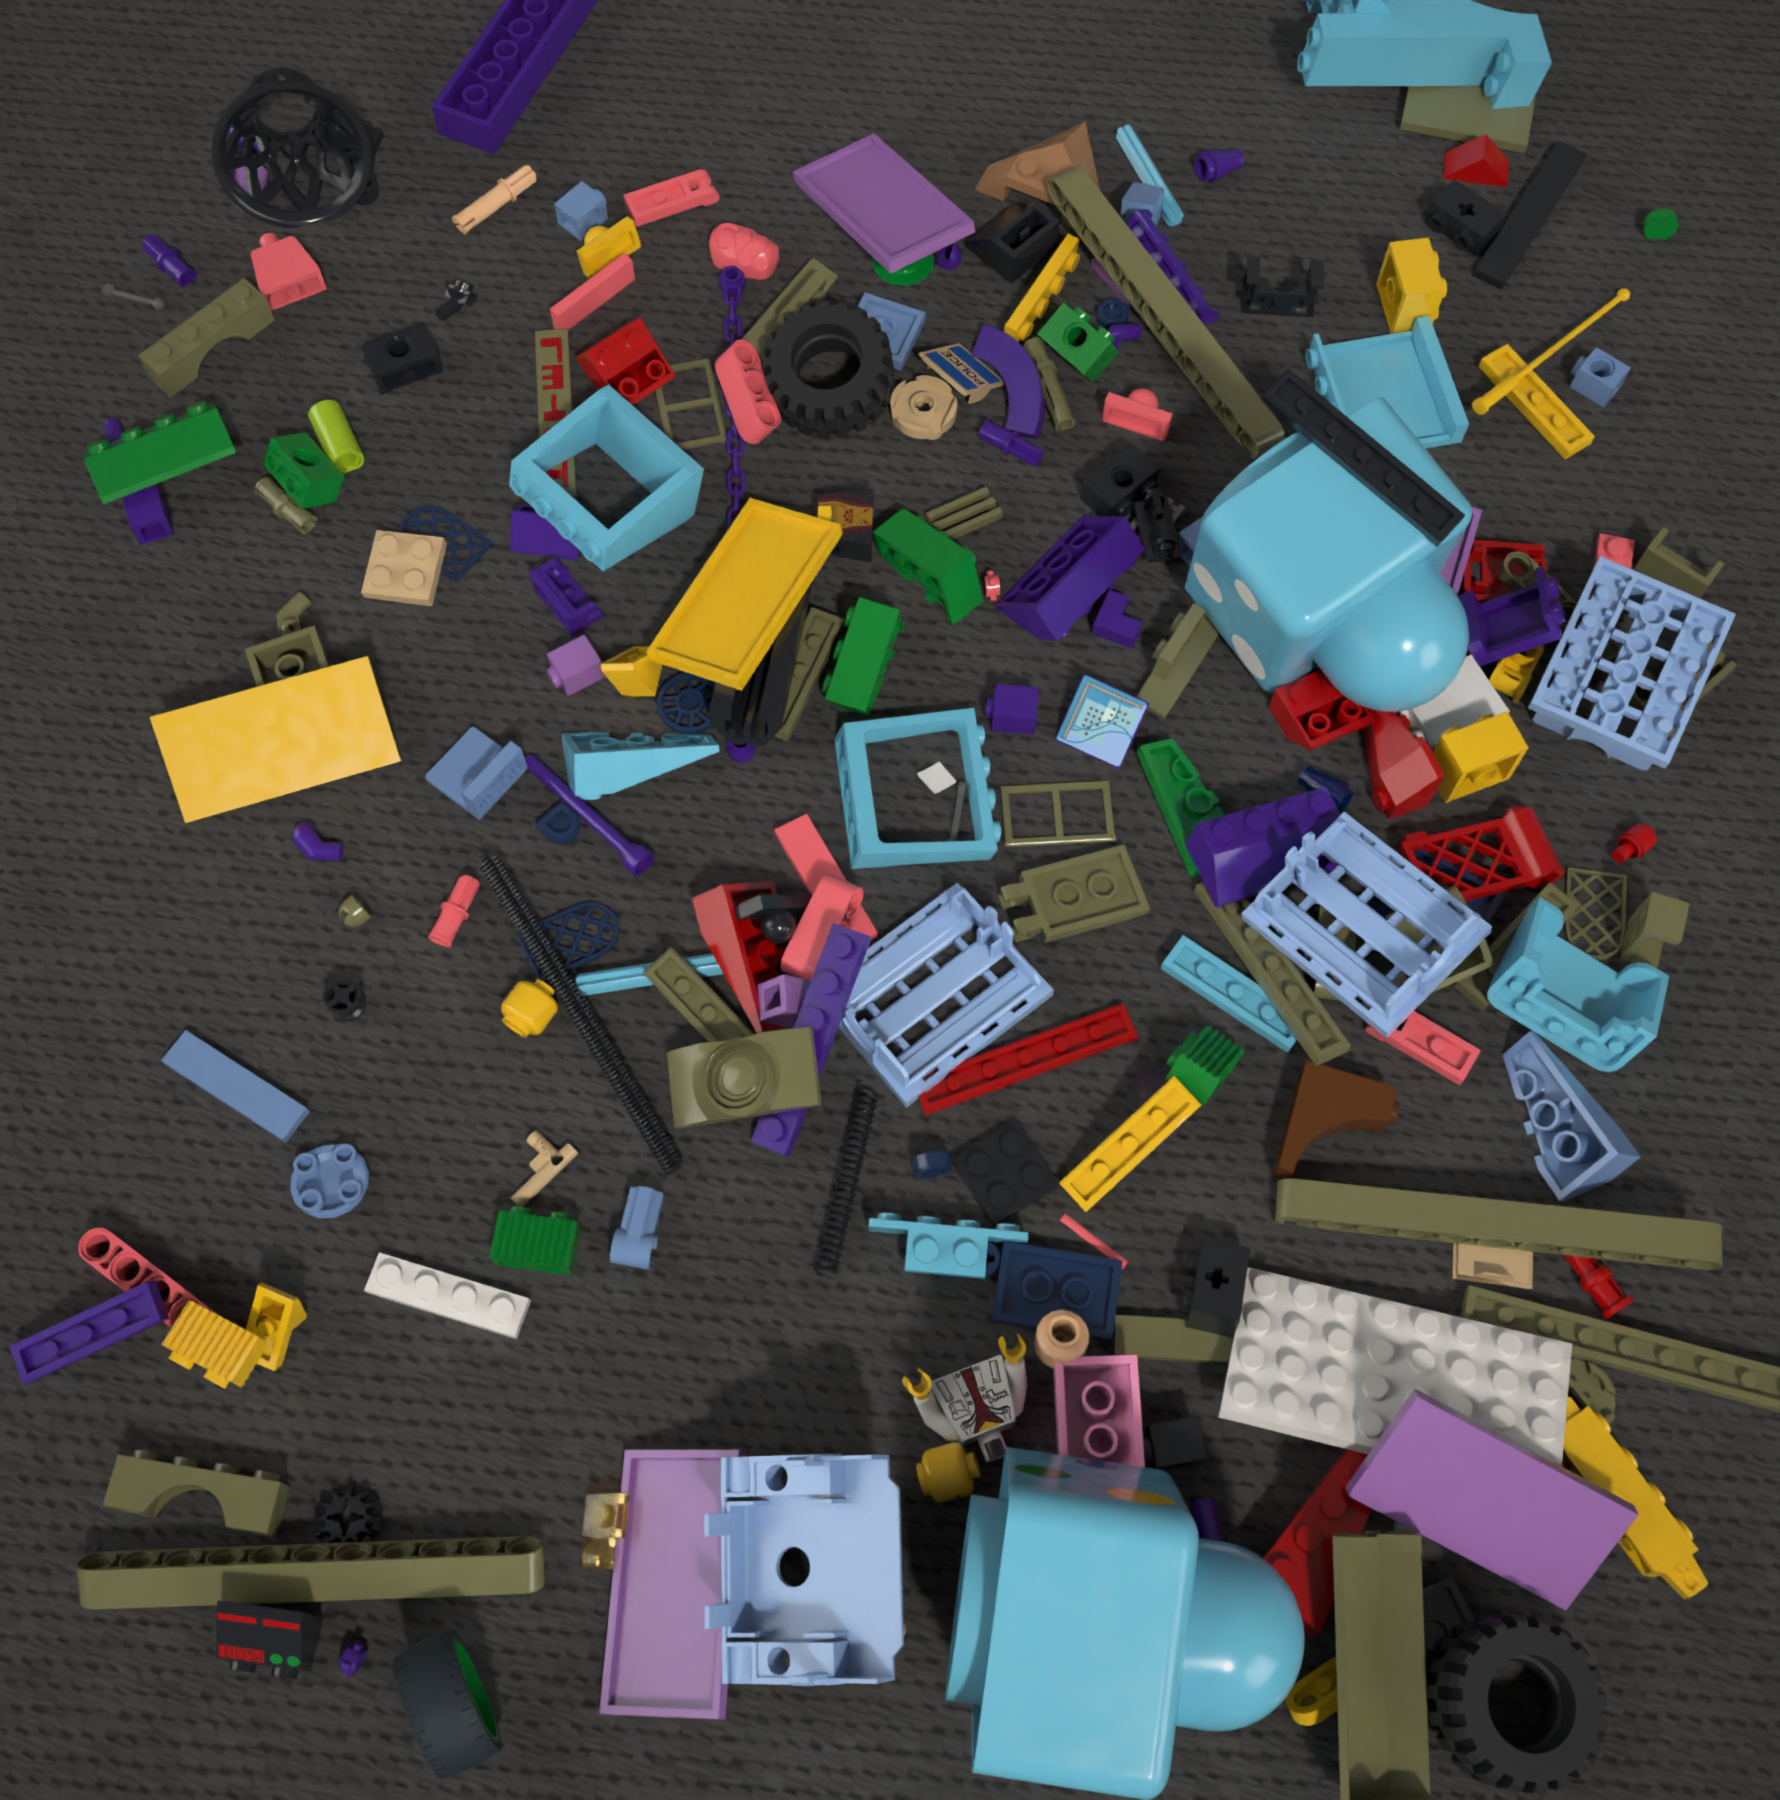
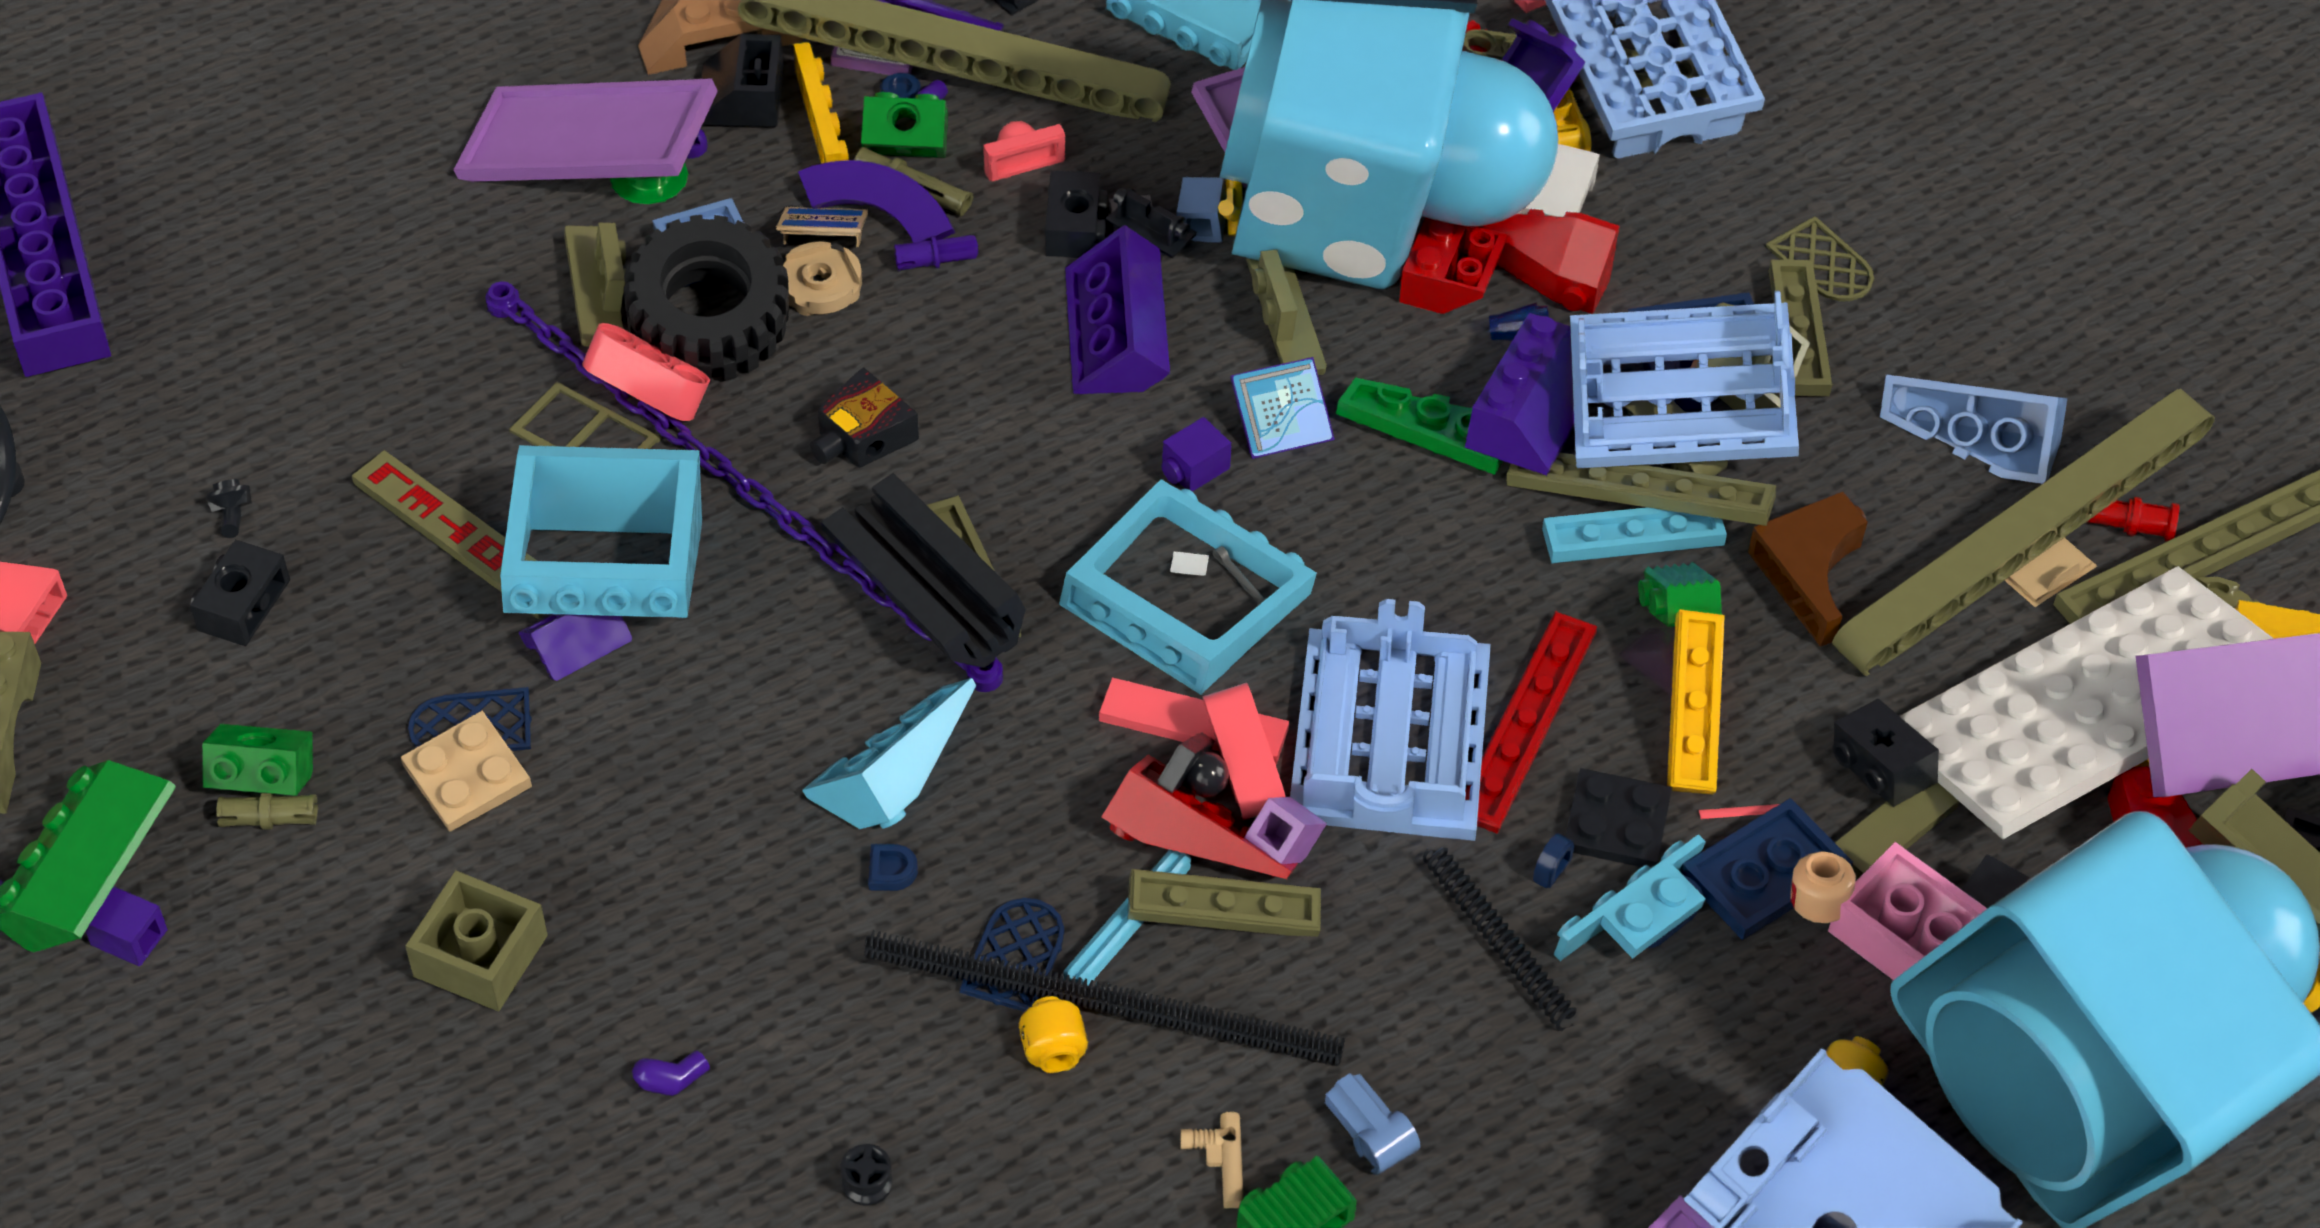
camera: 45 degrees left, 15 degrees down
(275, 739) = (526, 1007): yellow tile -> none
(288, 616) = (392, 905): olive arm -> none
(336, 435) = (245, 705): lime pin -> none
(353, 912) = (782, 1089): olive hinge -> none
(454, 911) = (880, 1017): coral axle -> none
(477, 771) = (758, 884): medium blue bracket -> none
(487, 204) = (161, 404): light nougat axle -> none
(564, 596) = (664, 679): dark purple hinge -> none
(574, 666) = (748, 721): medium lavender brick -> none
(581, 210) = (276, 339): medium blue brick -> none
(593, 293) = (376, 400): coral tile -> none
(606, 244) = (340, 354): yellow tile -> none
(627, 362) = (482, 435): red slope -> none
(631, 854) = (995, 835): dark purple piece -> none
(633, 672) = (815, 681): yellow slope -> none
(670, 197) = (353, 271): coral plate -> none
(688, 702) = (892, 674): dark blue wheel -> none
(743, 1077) = (1322, 918): olive slope -> none
(744, 249) = (477, 265): coral piece -> none
(745, 593) = (853, 532): yellow tile -> none
(822, 1012) = (1349, 836): dark purple plate -> none
(863, 656) = (1018, 507): green wedge -> none
(932, 560) = (984, 388): green wedge -> none
(961, 503) = (970, 316): olive tile -> none
(975, 1400) = (1808, 996): white torso -> none
(991, 585) = (1054, 376): coral piece -> none
(1059, 838) = (1349, 530): olive window -> none
(1076, 895) = (1419, 557): olive tile -> none
(1112, 622) = (1197, 329): dark purple piece -> none
(1432, 1047) = (1824, 450): coral plate -> none
(1478, 755) = (1619, 194): yellow brick -> none
(1520, 838) = (1721, 250): red piece -> none
(1573, 996) = (1912, 330): medium azure windscreen -> none
(1637, 838) = (1797, 184): red cylinder -> none
(1654, 922) = (1879, 227): olive panel -> none

